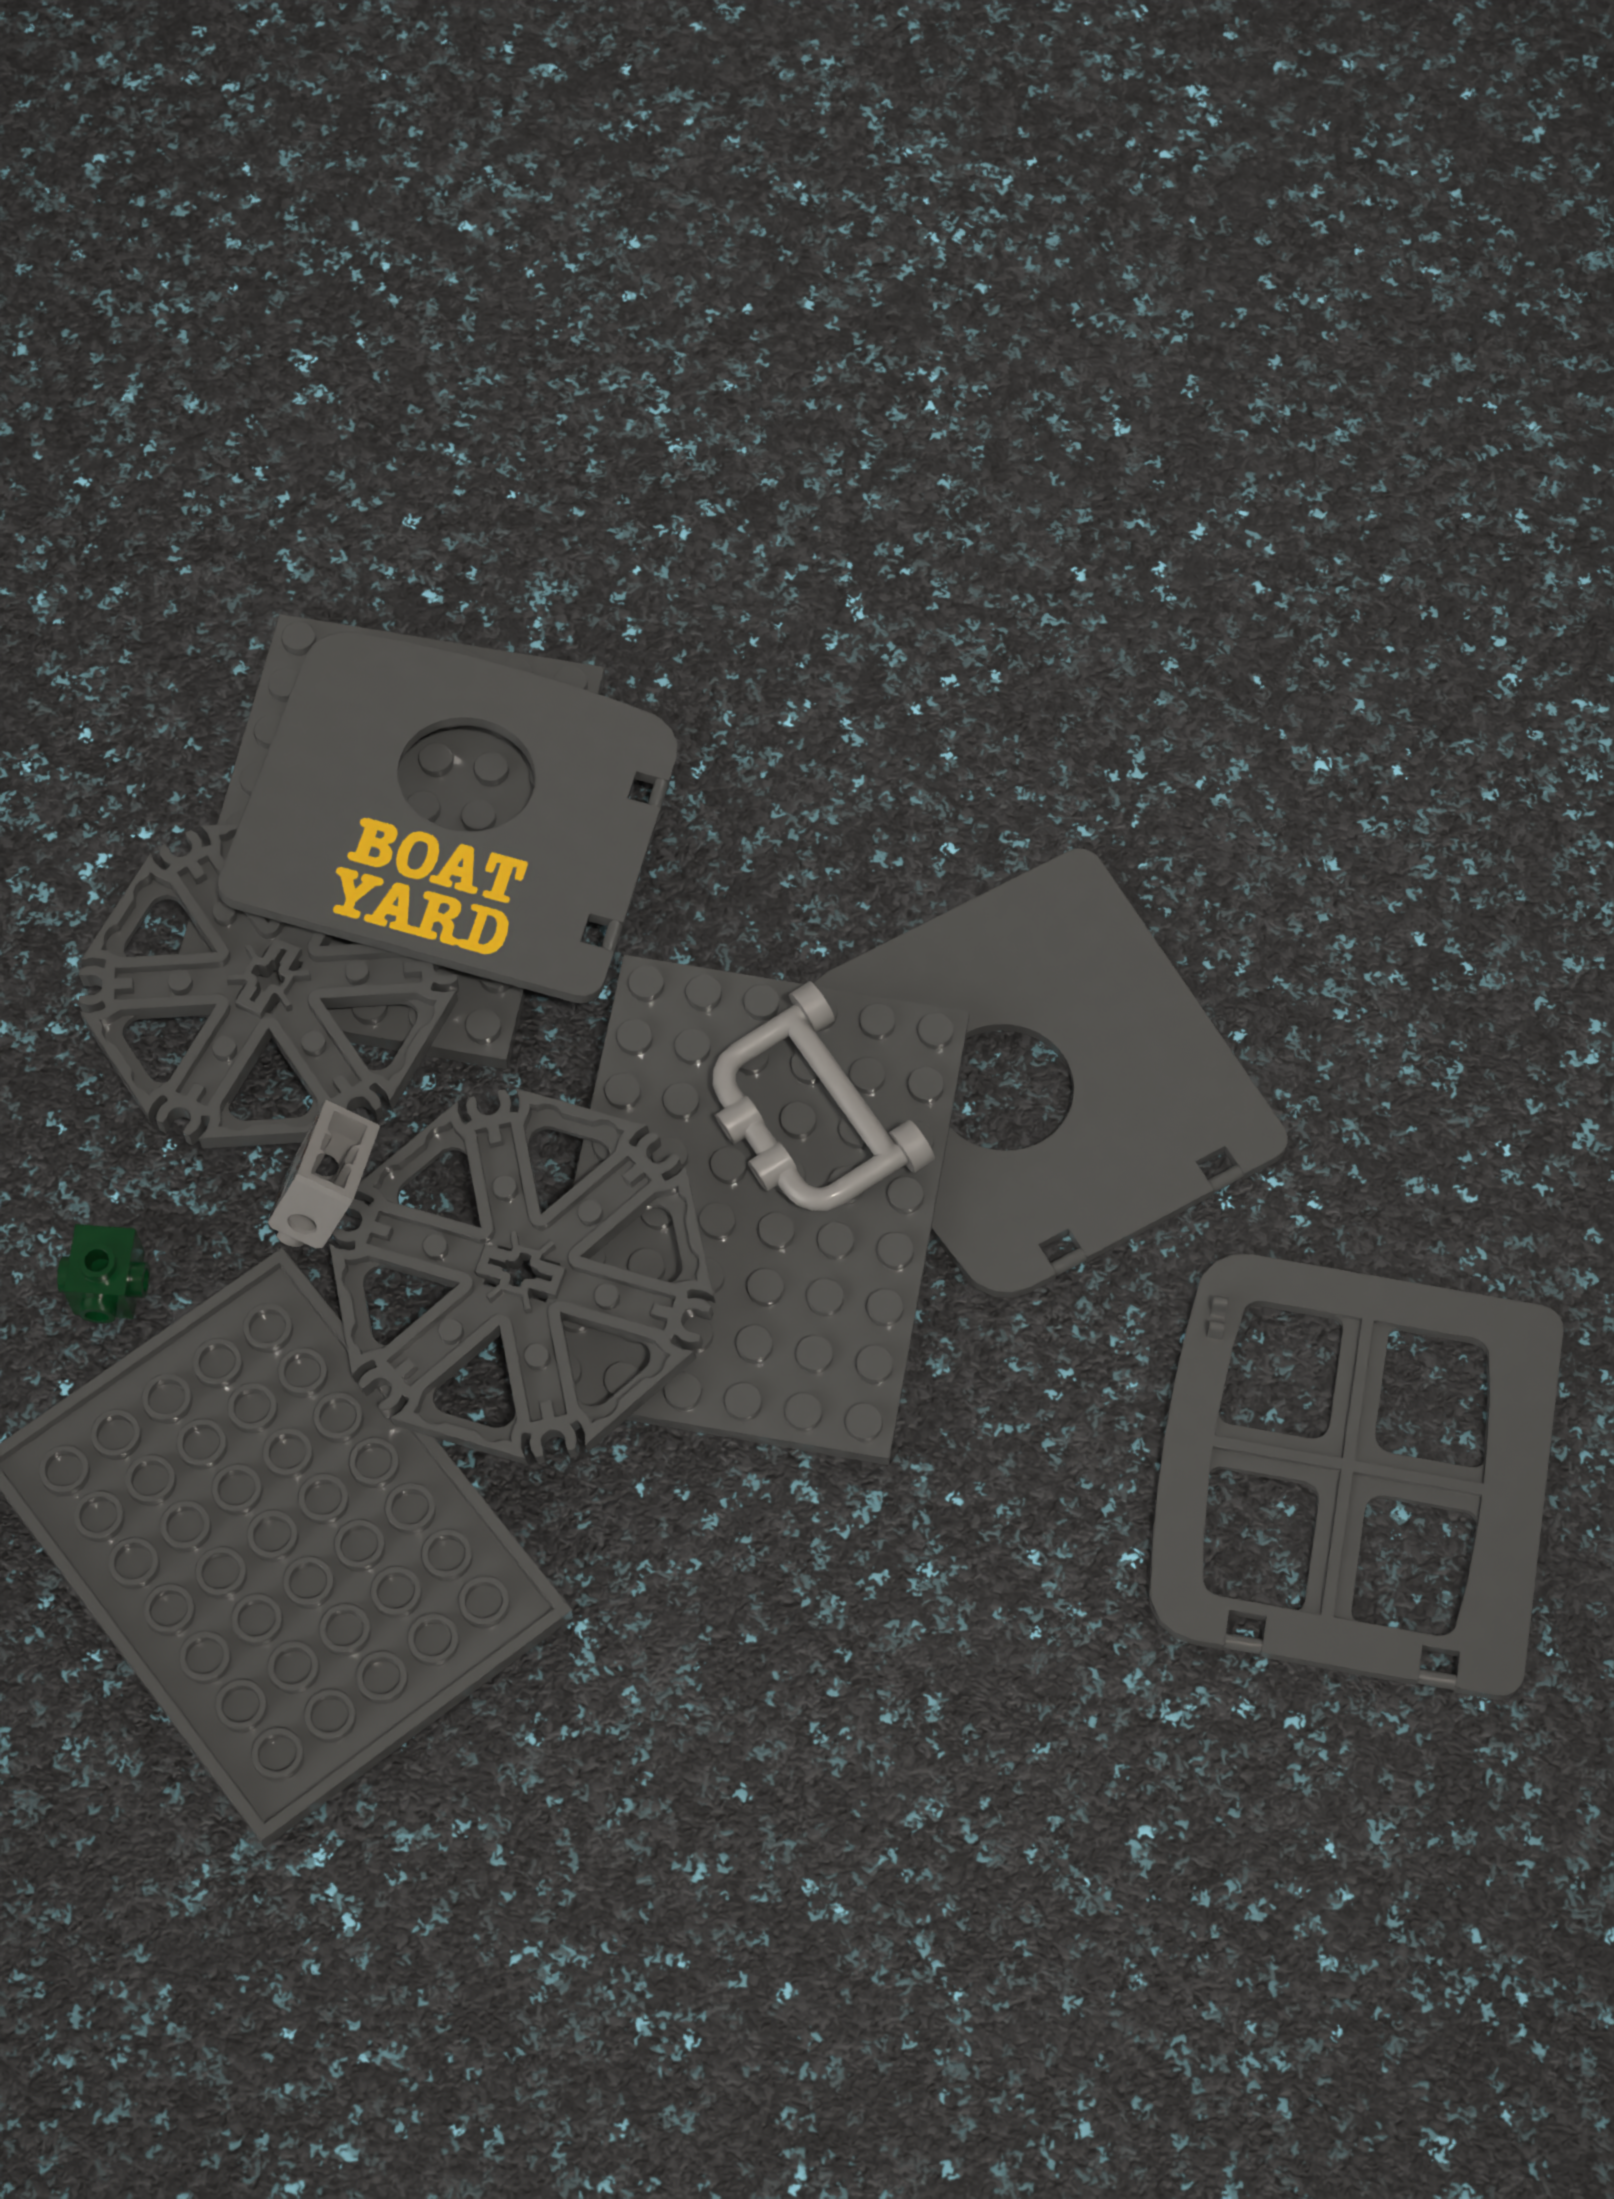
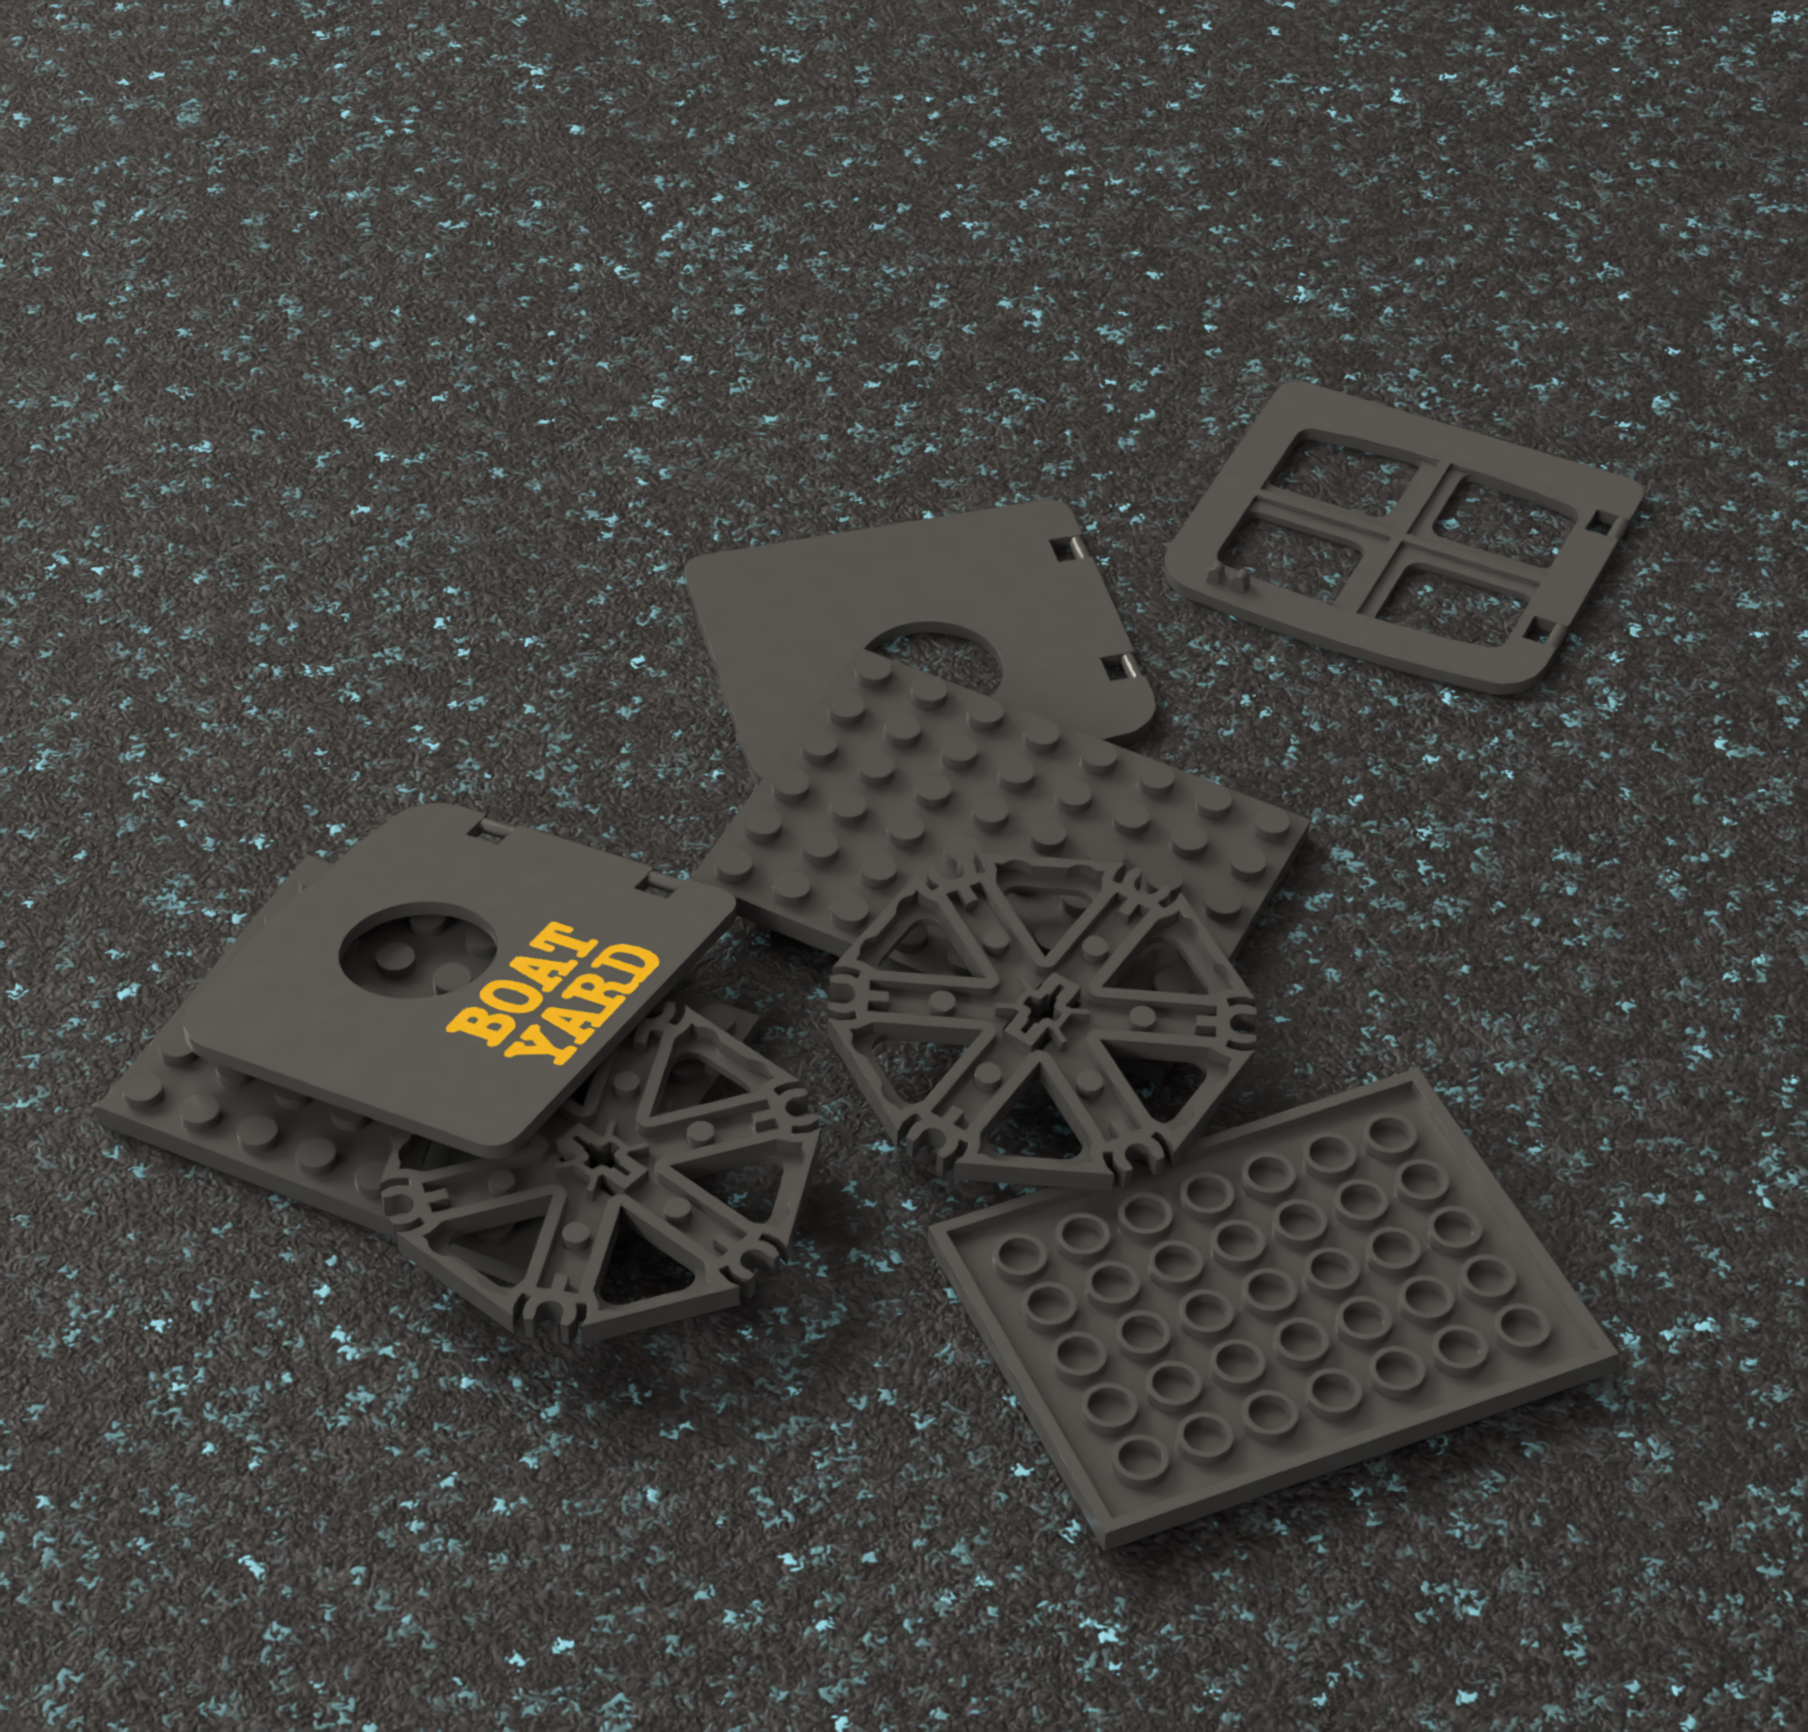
camera: 75 degrees left, 20 degrees down
(104, 1273) = (910, 1379): dark green brick -> none
(314, 1204) = (881, 1149): light grey torso -> none
(773, 1164) = (1005, 708): light grey bar -> none

